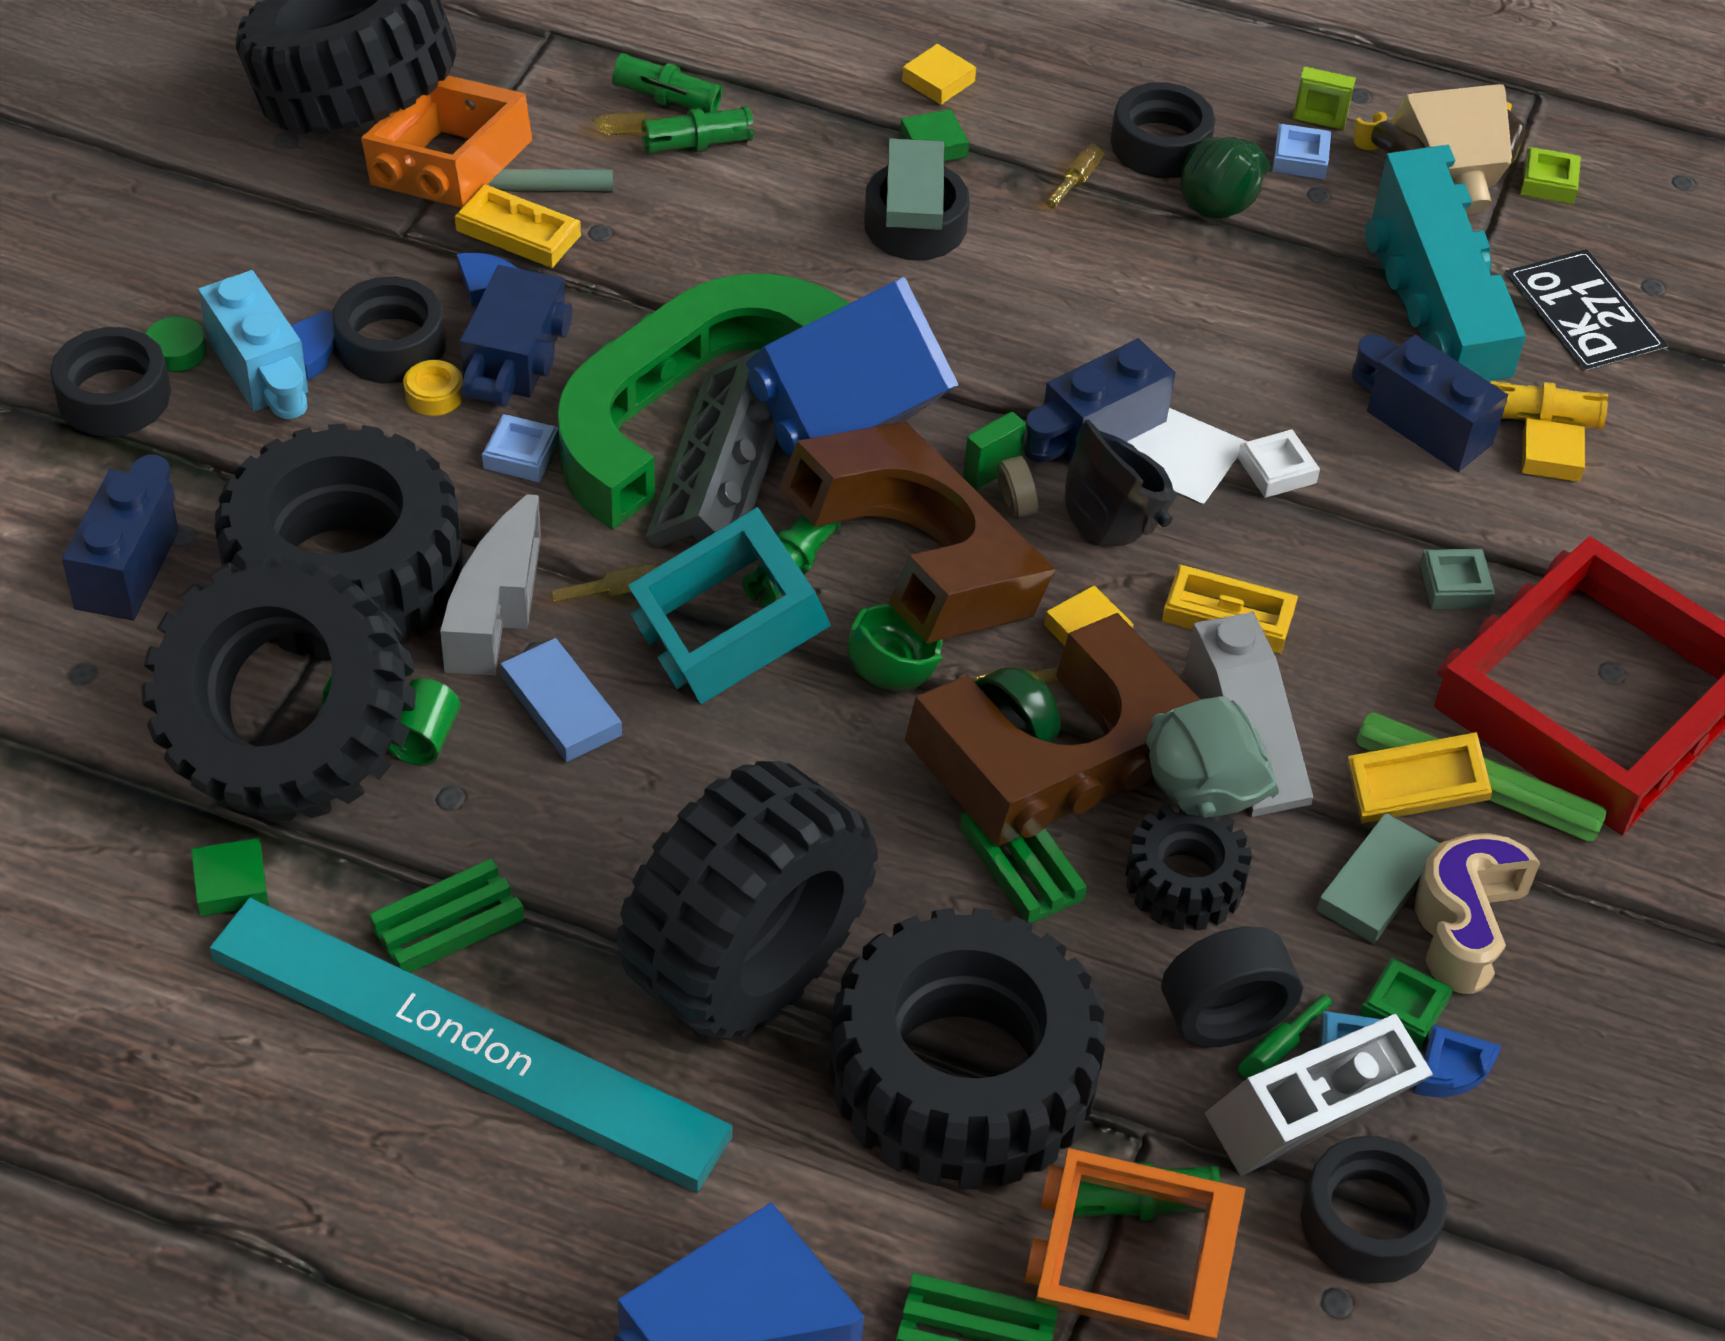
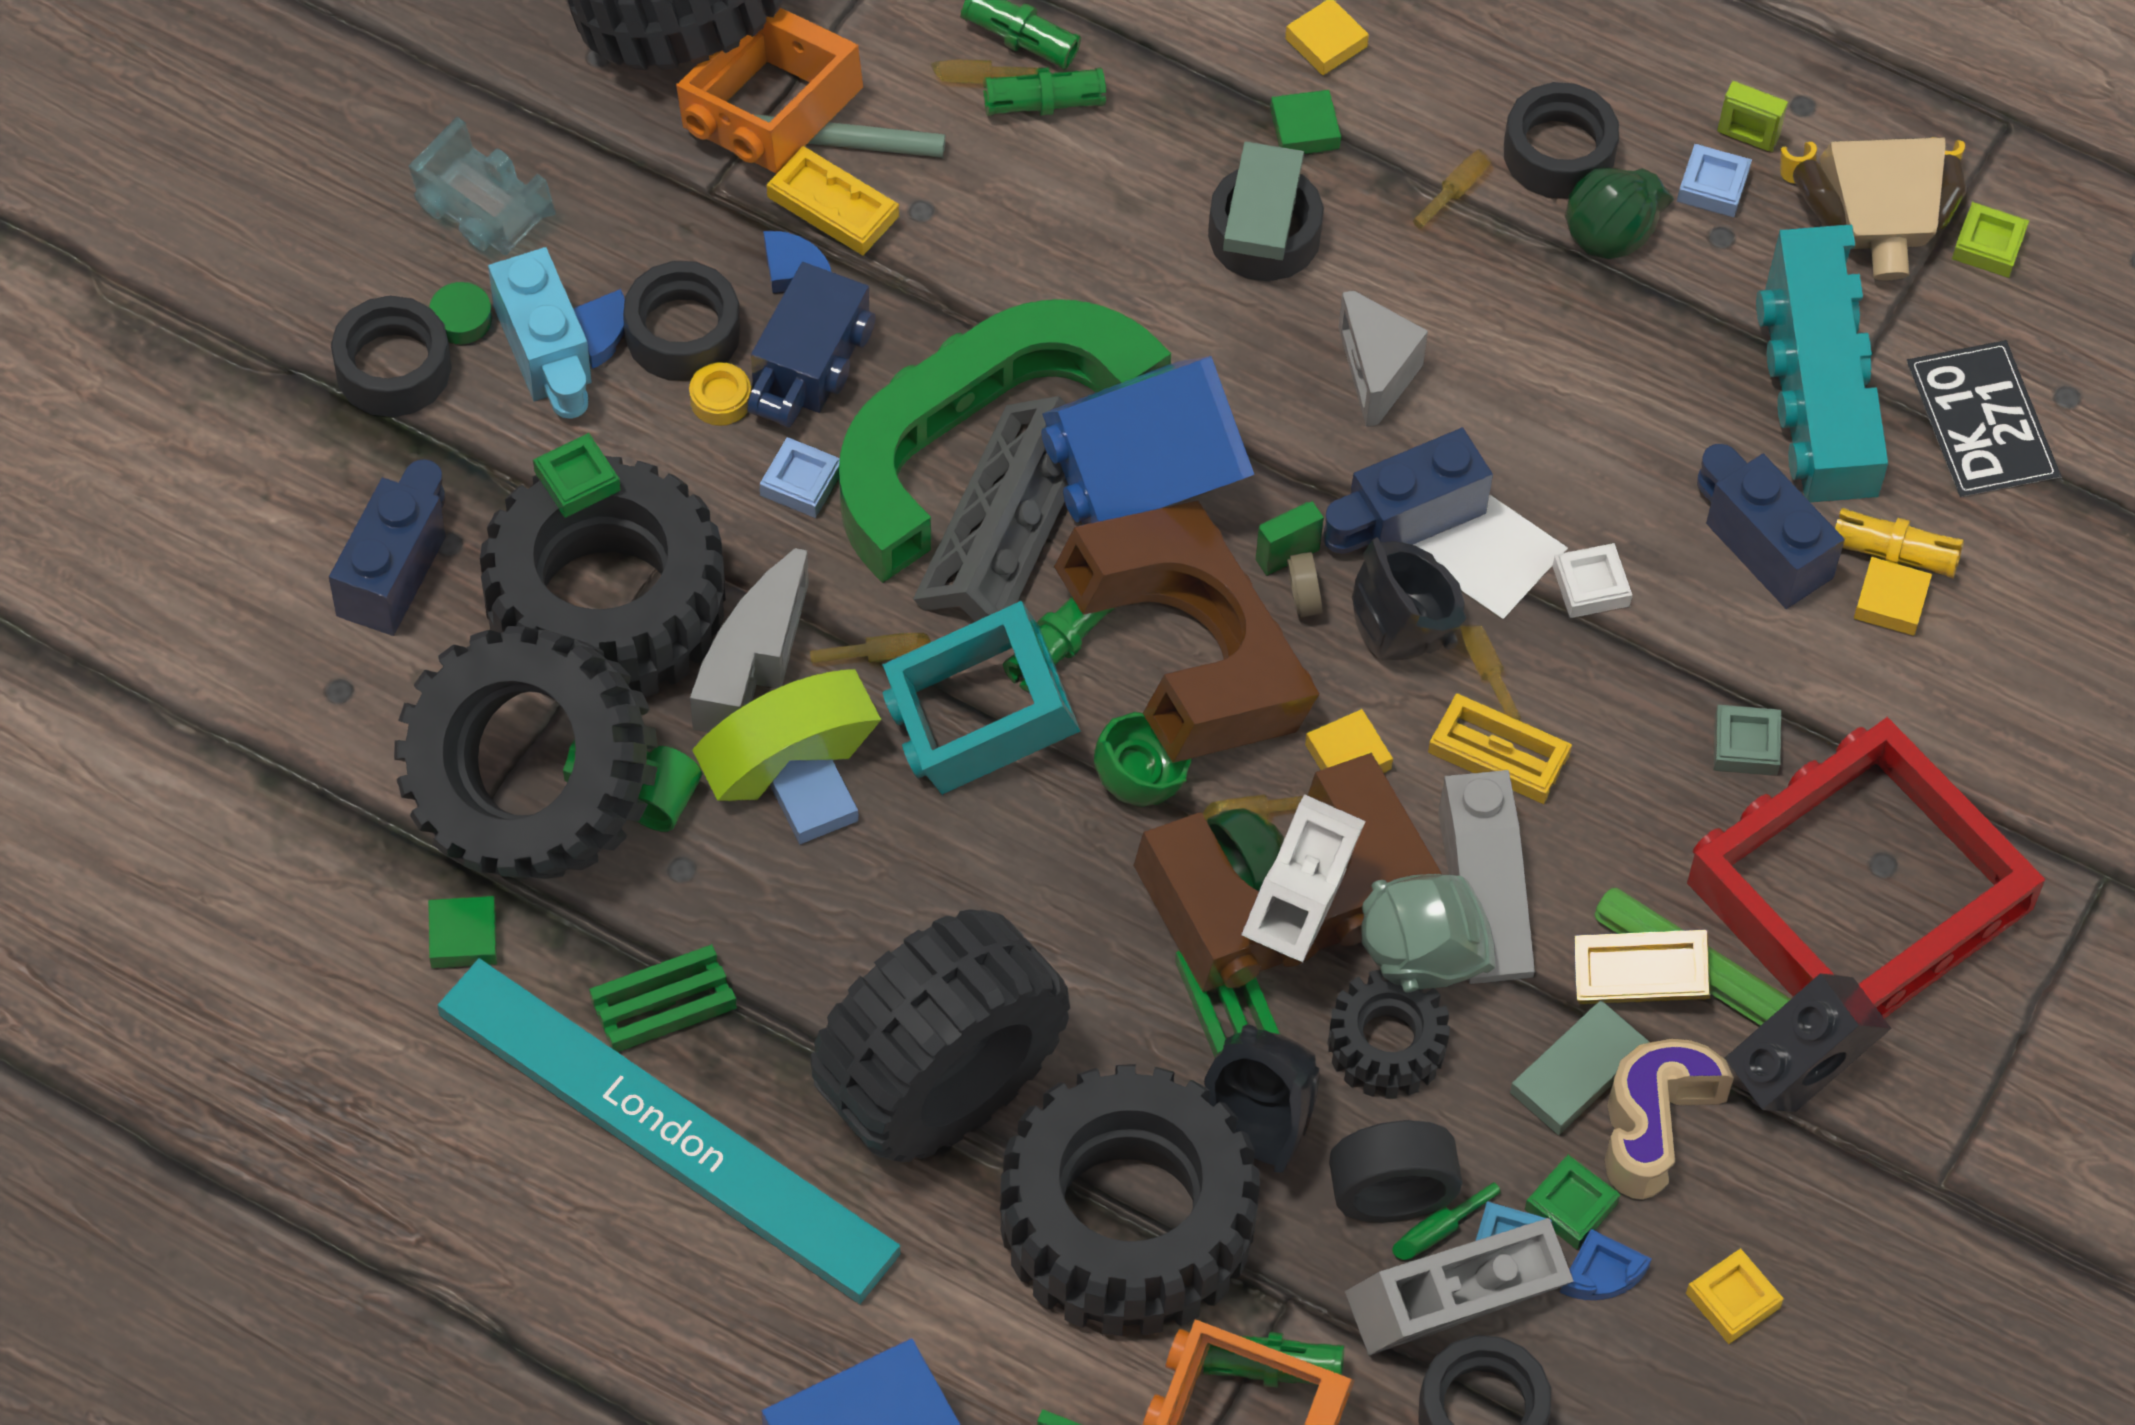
camera: 10 degrees right, 10 degrees up
(182, 247) = (478, 190): none -> clear light blue window
(304, 439) = (576, 475): none -> green tile
(559, 638) = (802, 720): none -> lime brick
(1041, 297) = (1380, 351): none -> light grey slope
(1089, 711) = (1303, 878): none -> white brick
(1089, 917) = (1269, 1088): none -> black helmet
(1200, 539) = (1488, 665): none -> clear yellow piece
(1590, 1073) = (1734, 1296): none -> yellow tile
(1604, 820) = (1807, 1043): none -> black brick

